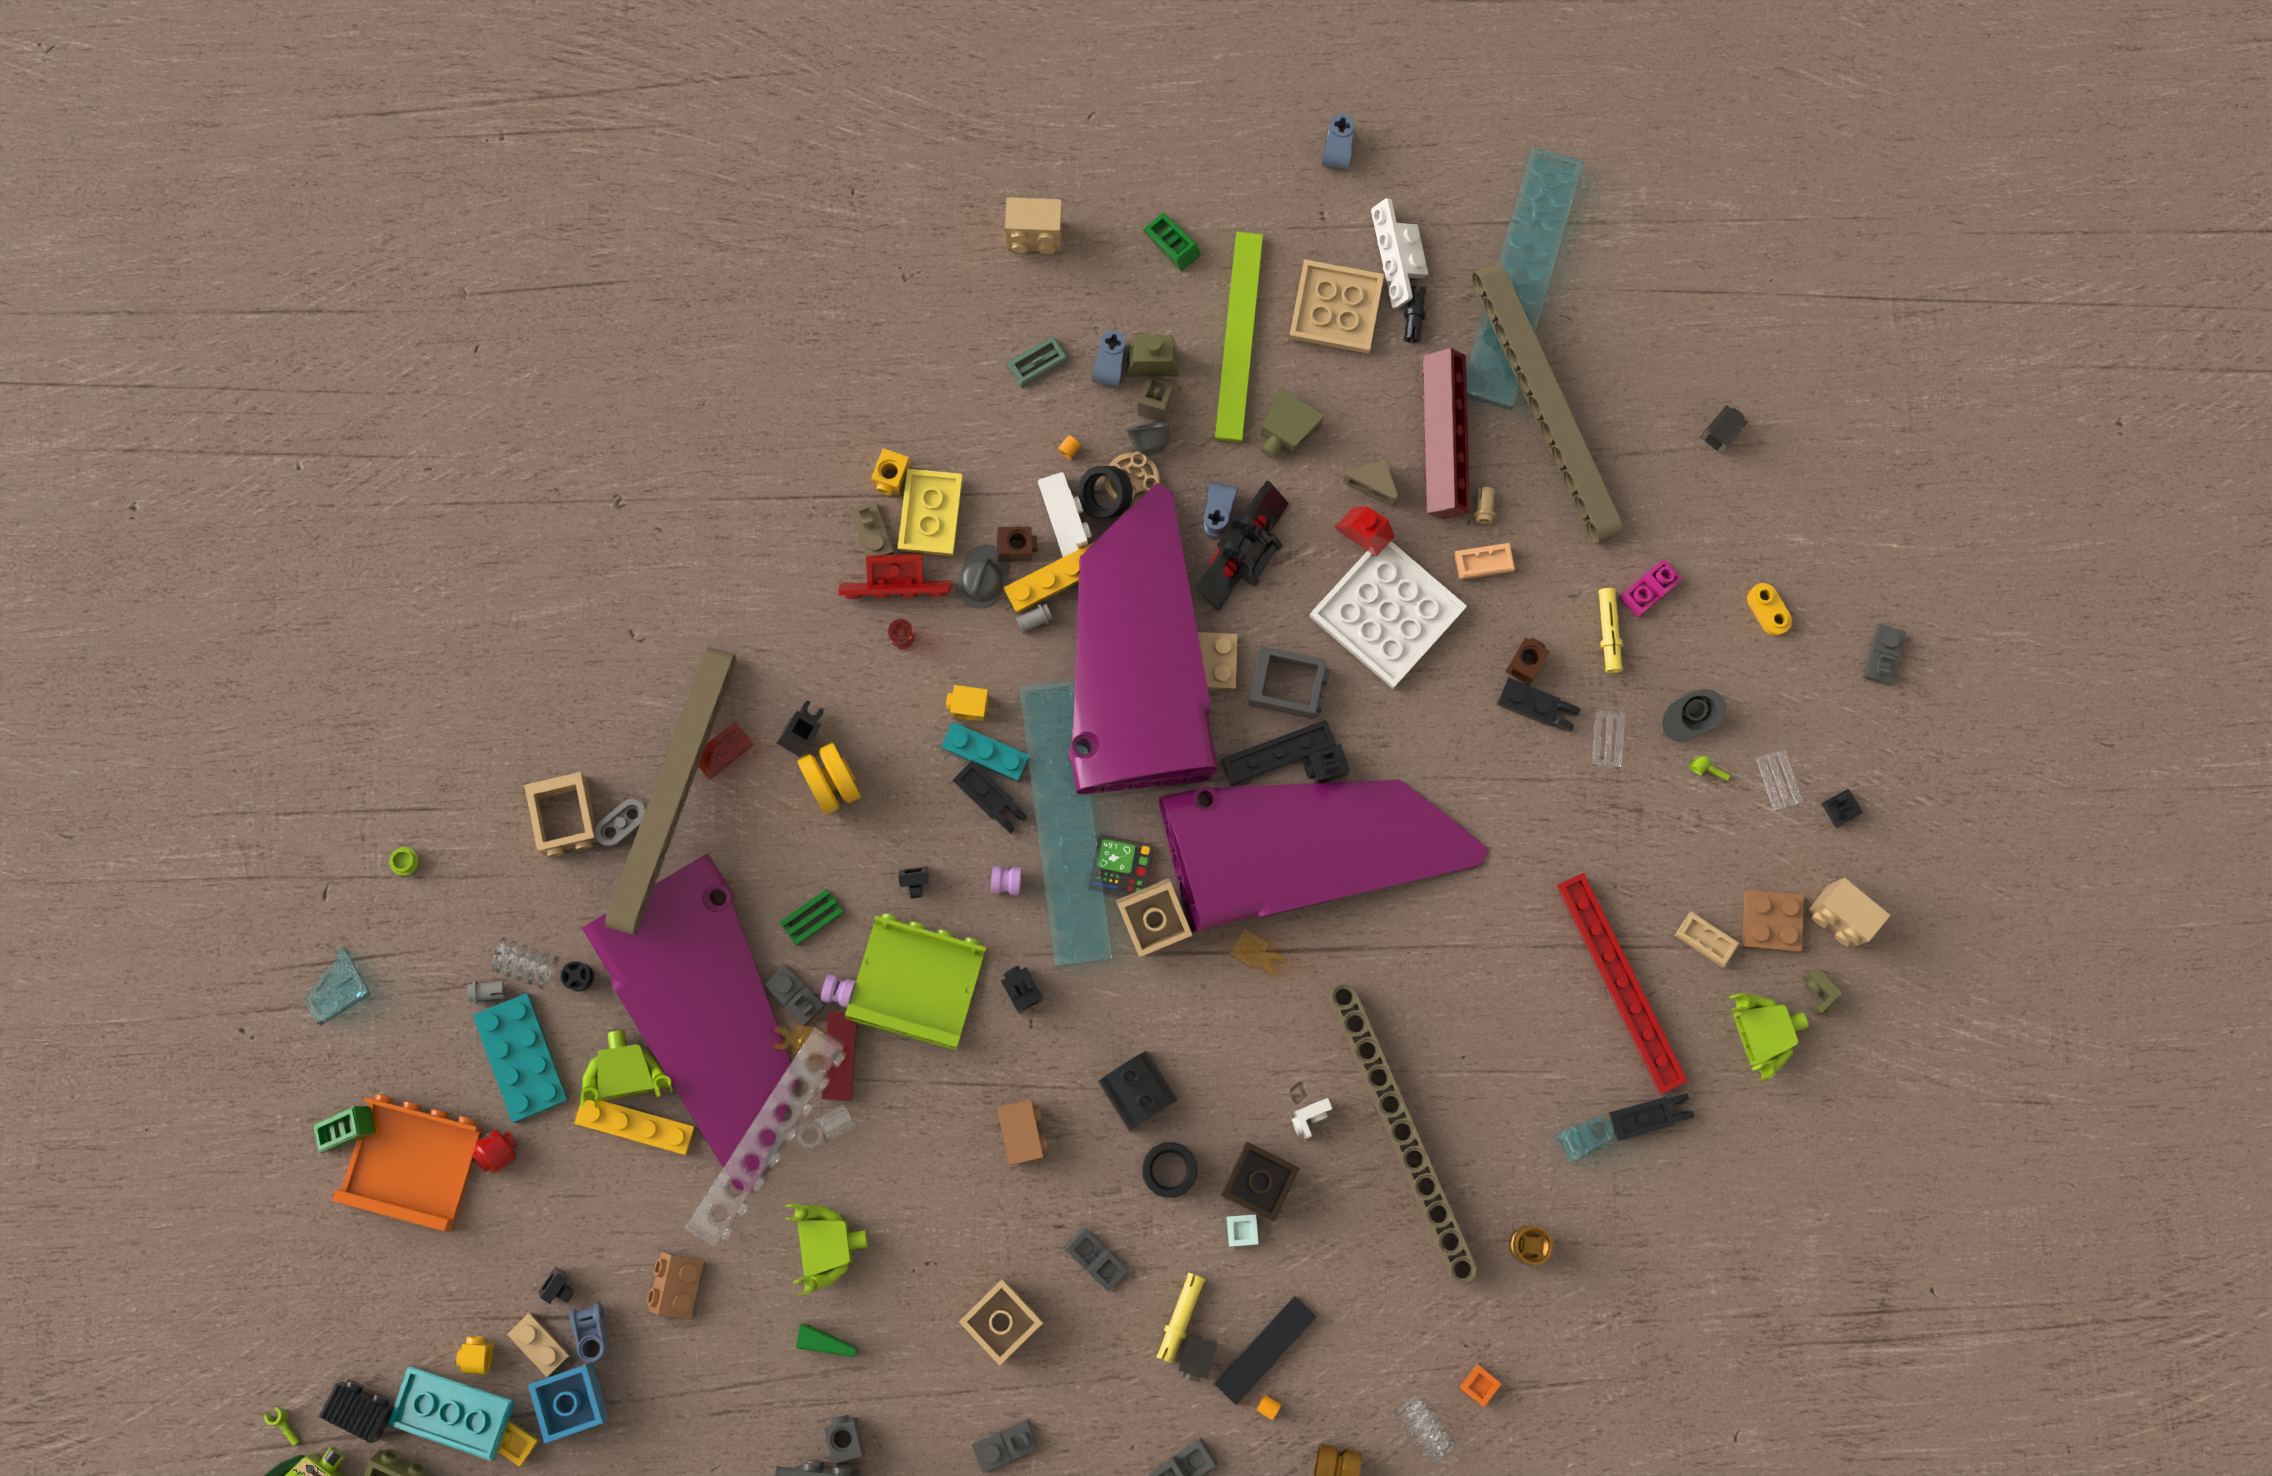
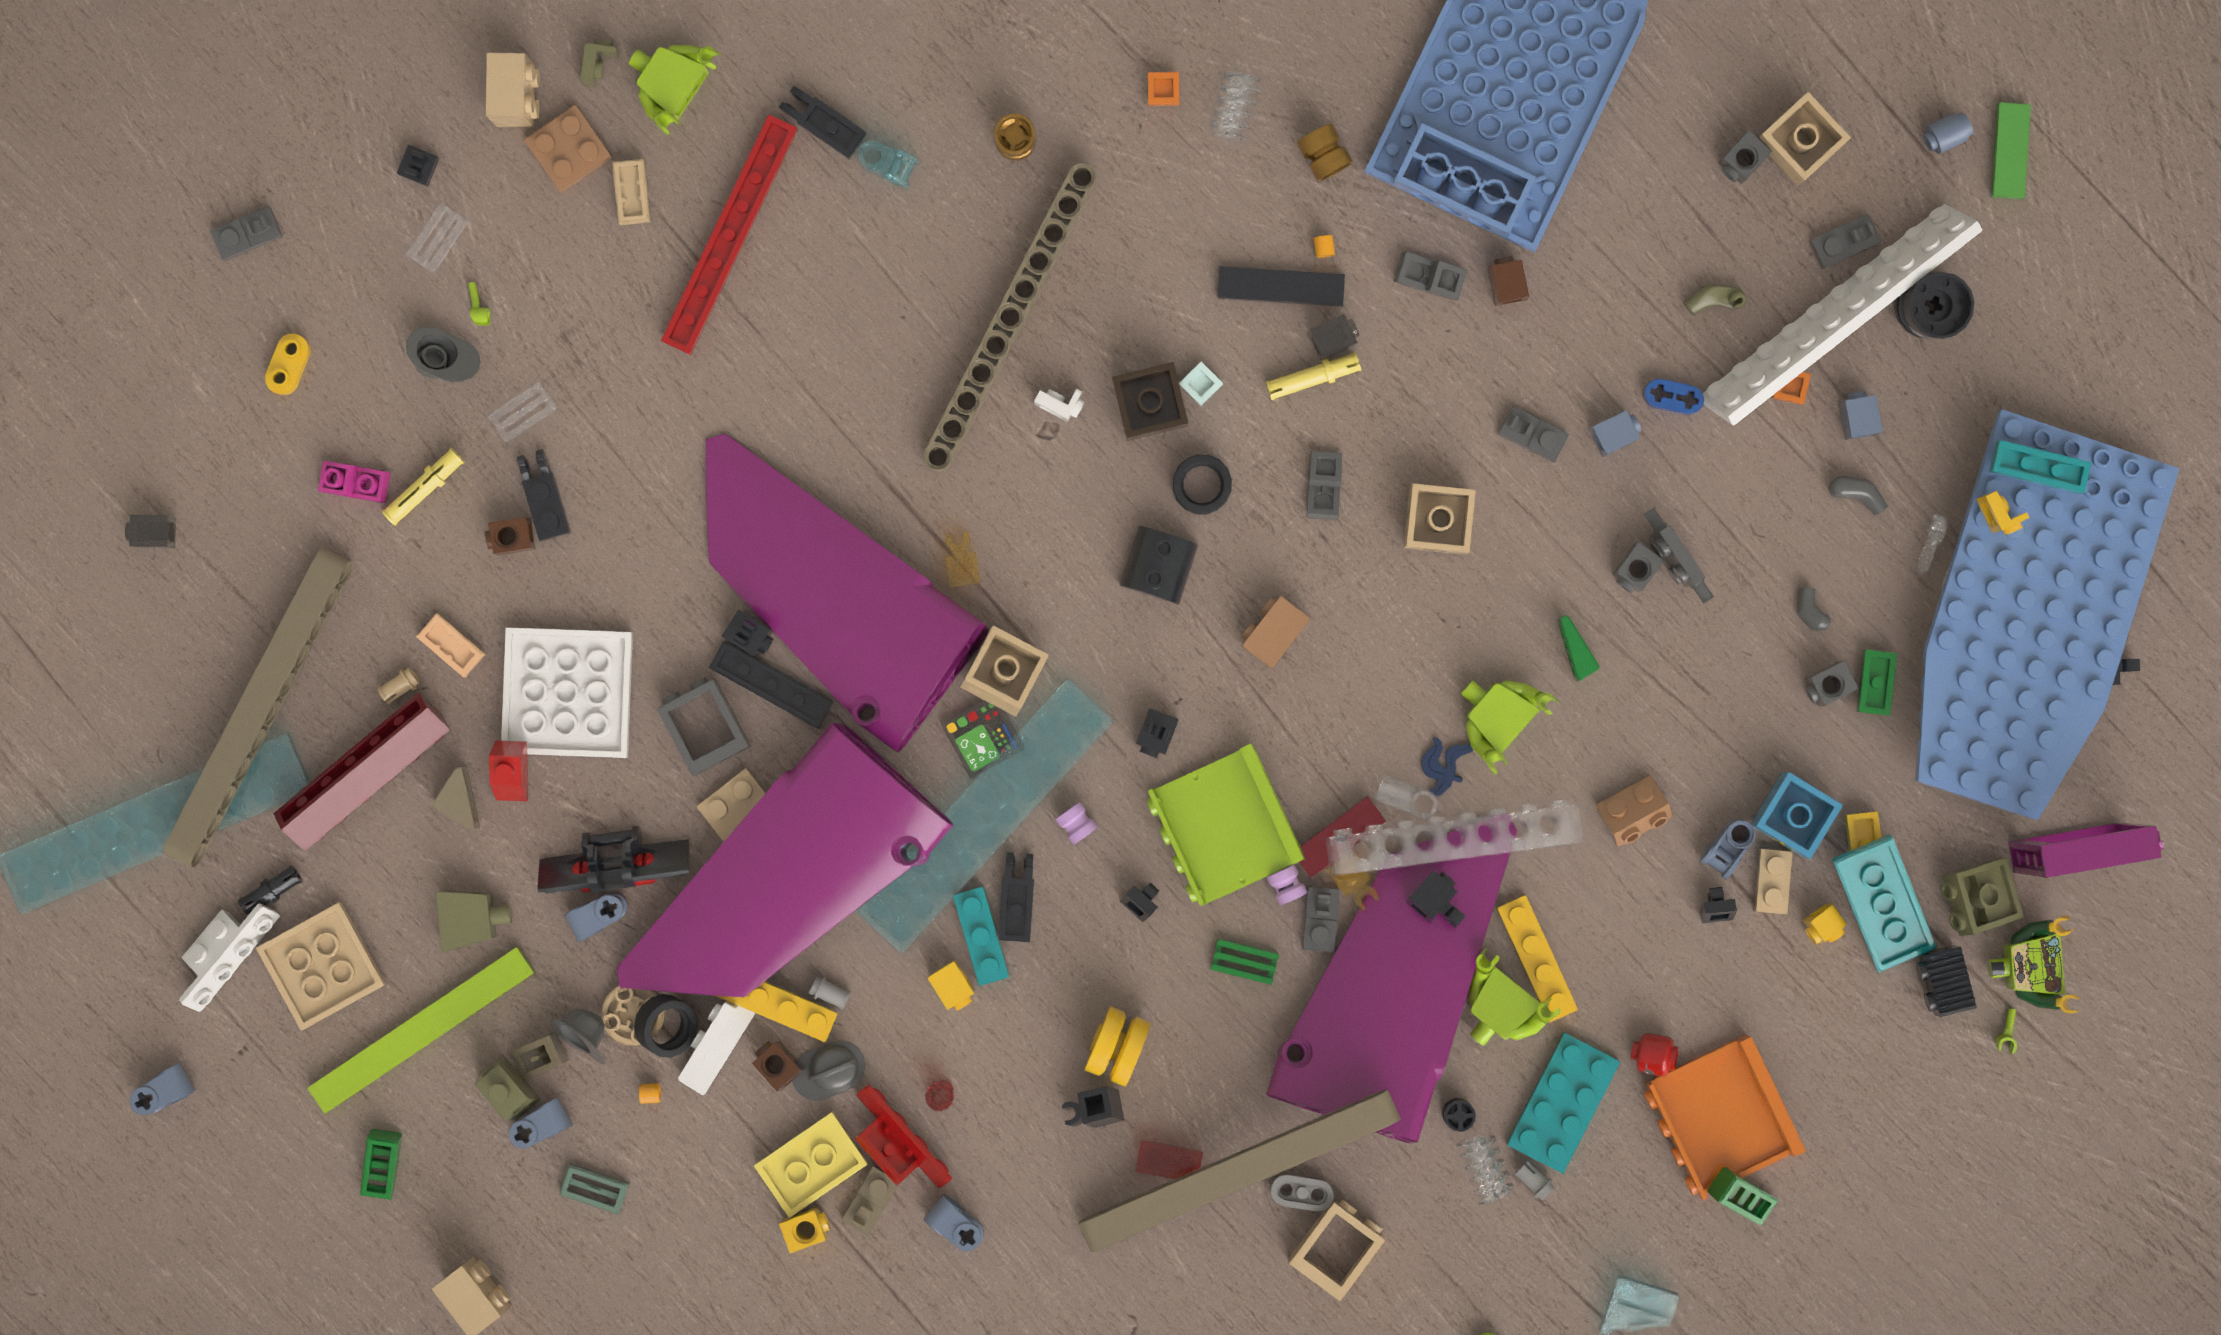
camera: 125 degrees left, 10 degrees up
(738, 1085) = (1434, 897): none -> black brick
(809, 573) = (950, 1219): none -> sand blue piece
(827, 1165) = (1435, 770): none -> dark blue piece

